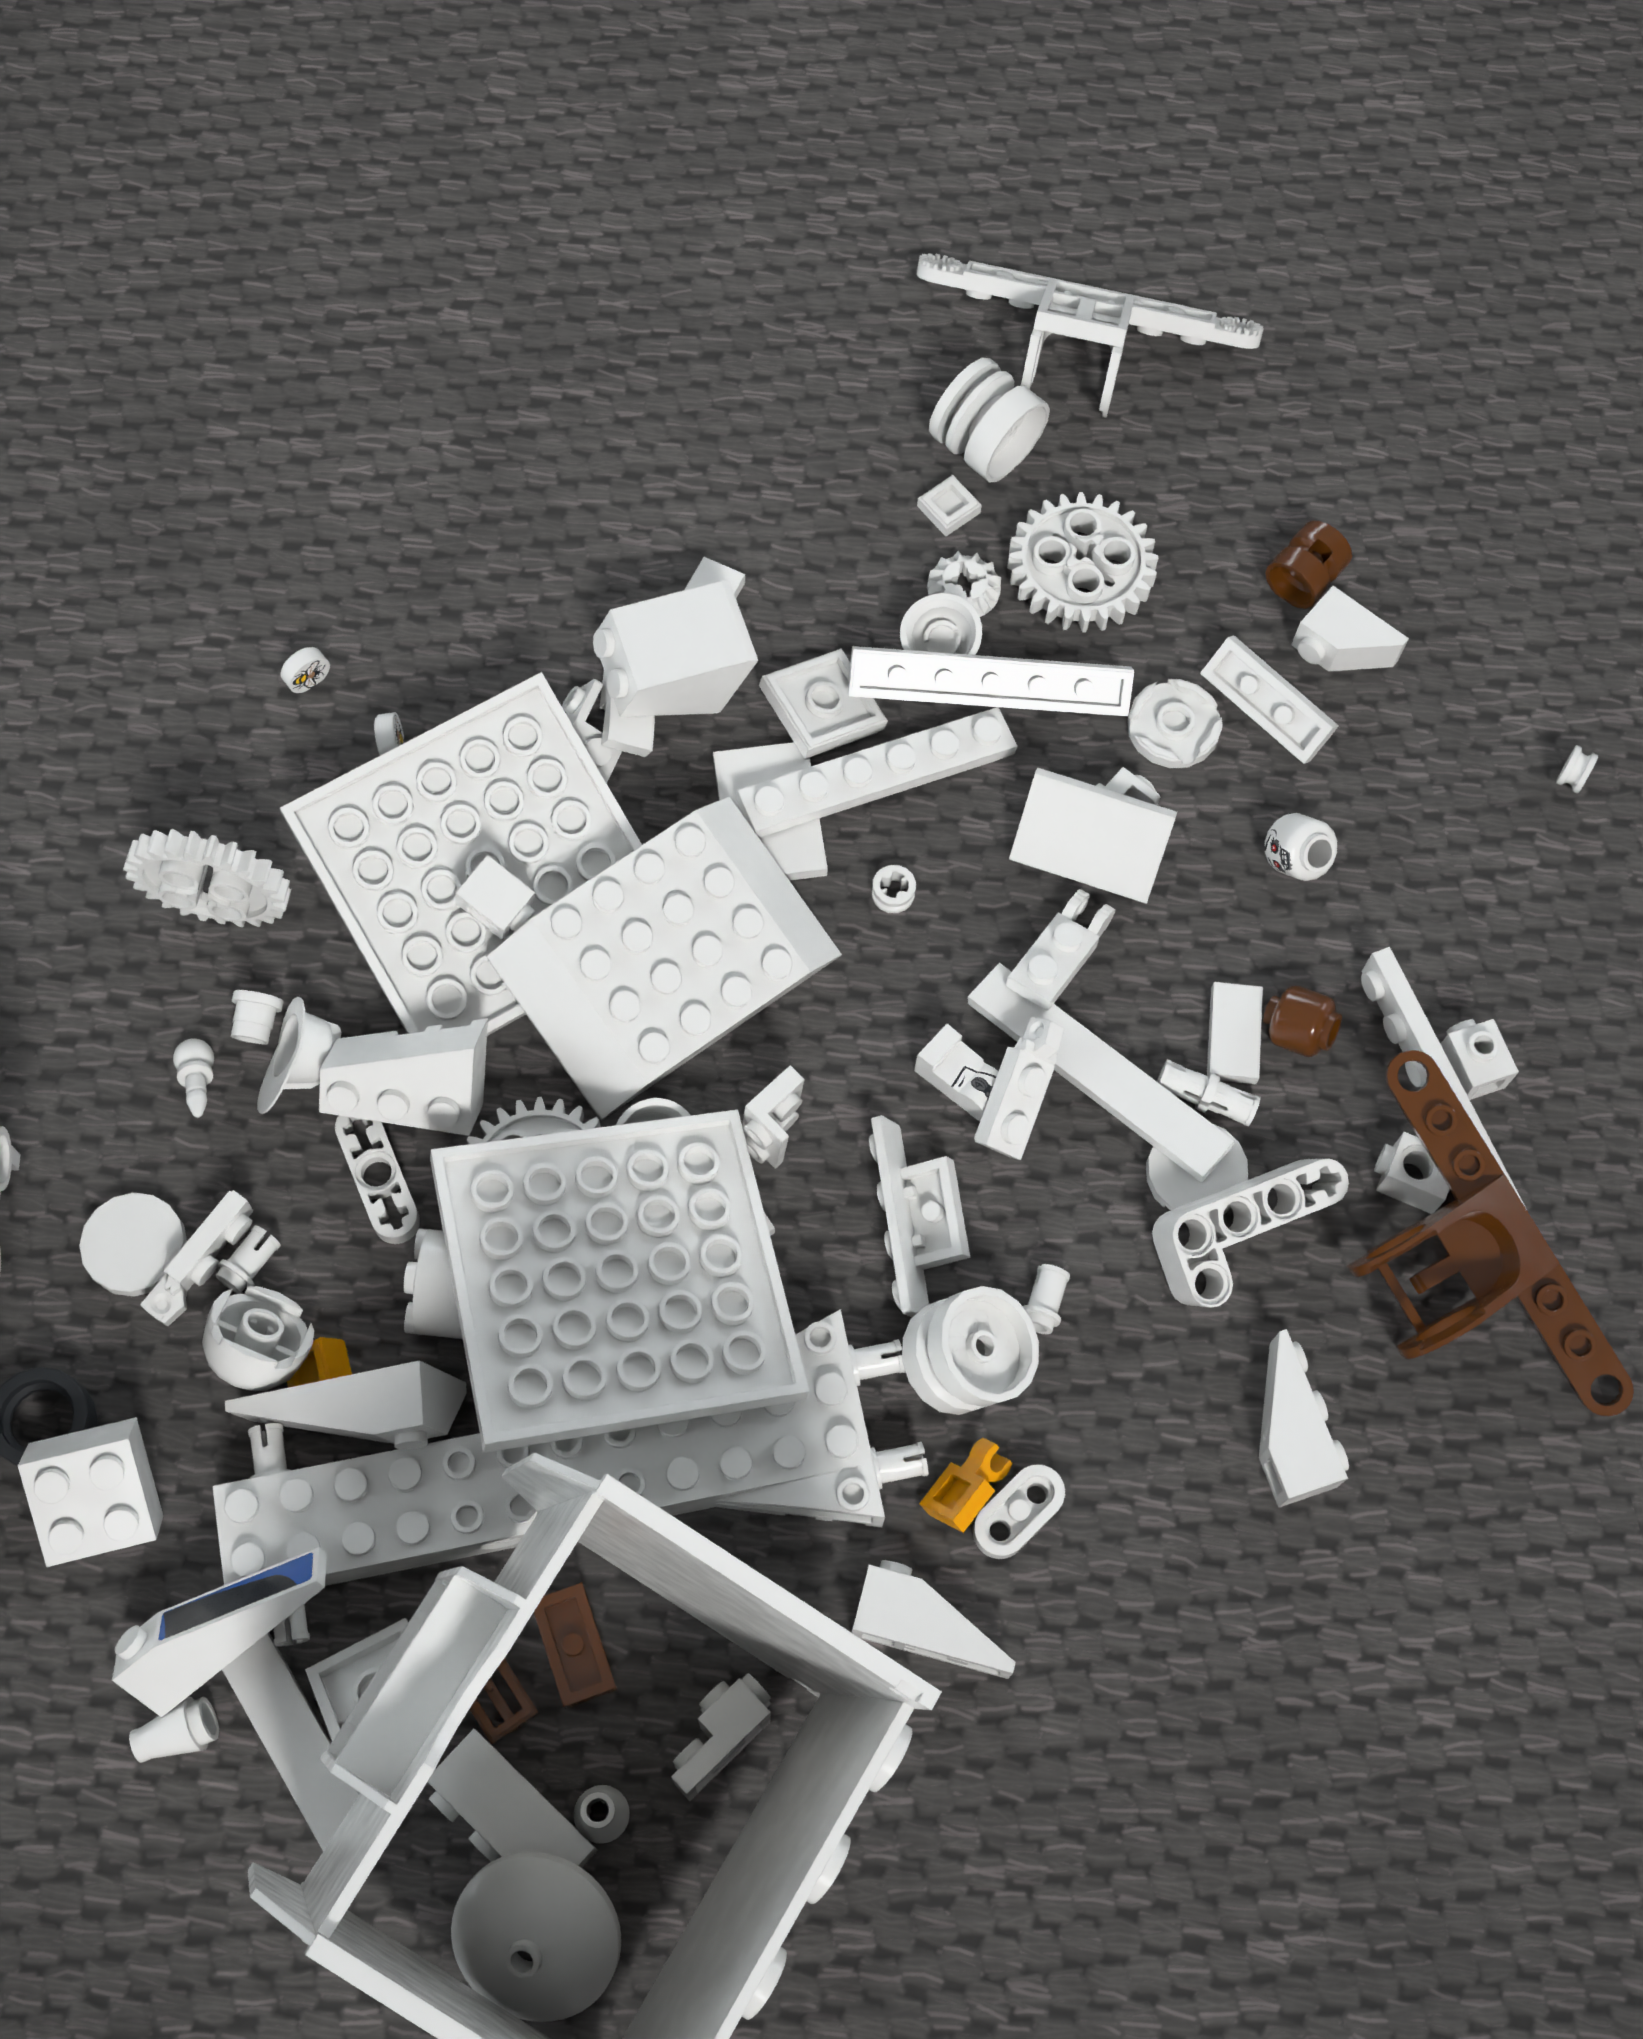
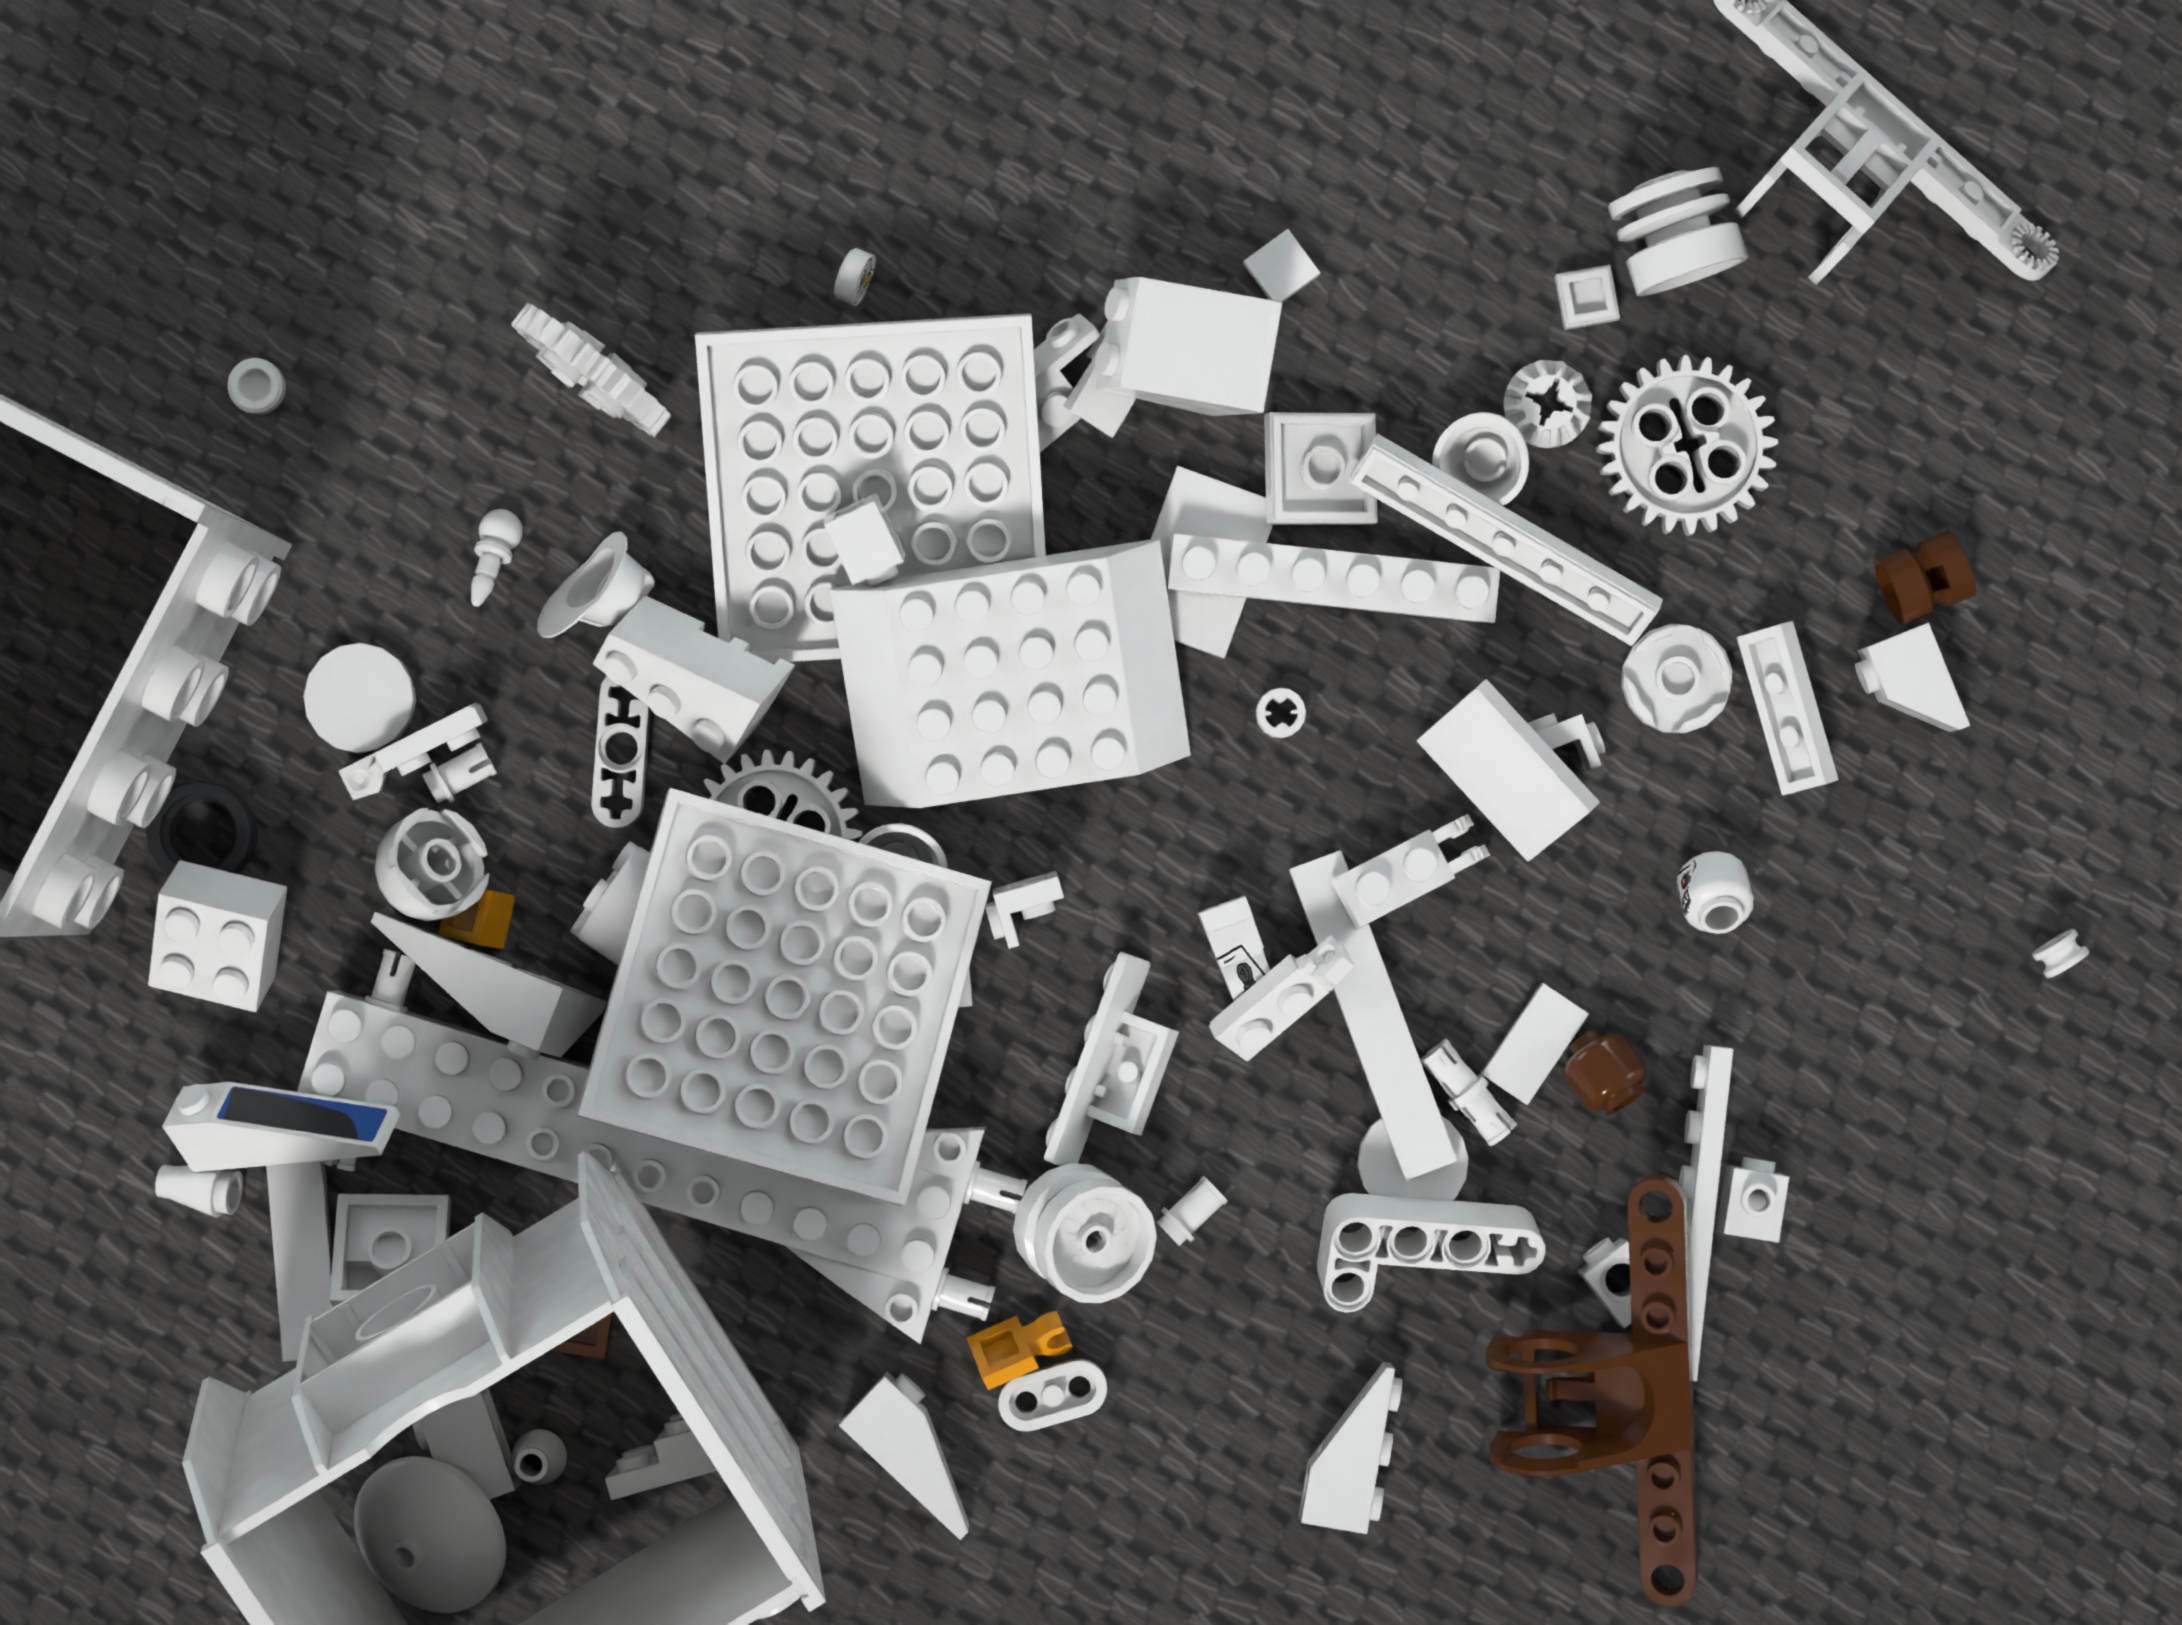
camera: 30 degrees right, 20 degrees up
(254, 1016) = (577, 522): white piece -> none
(304, 669) = (804, 151): white tile -> none

